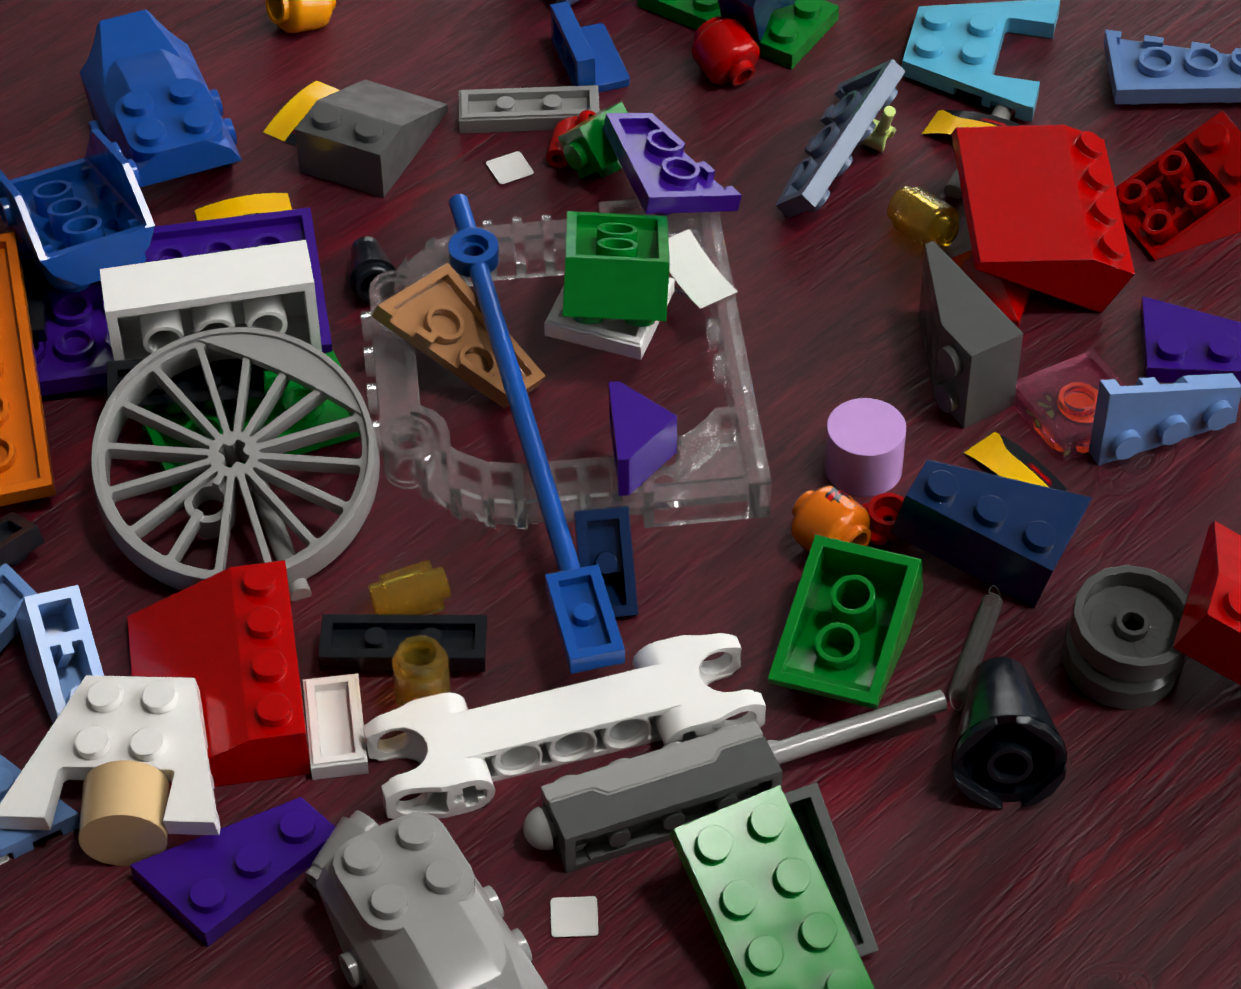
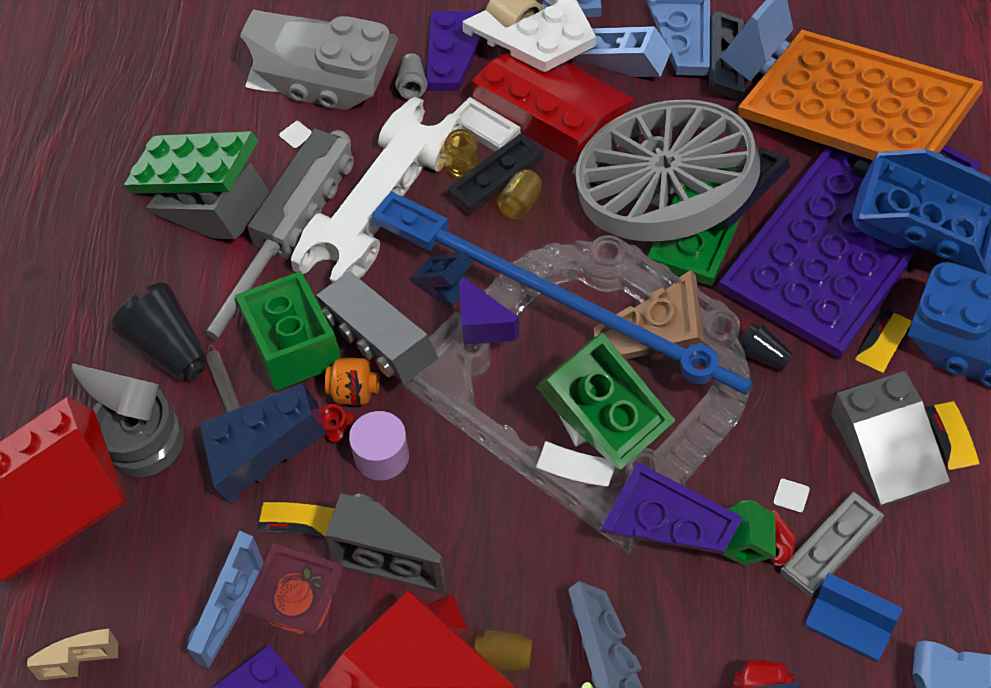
camera: 140 degrees right, 10 degrees up
(192, 294) = (772, 213): white brick -> none
(754, 532) = (376, 328): none -> brick
(1114, 613) = (119, 392): none -> light grey piece

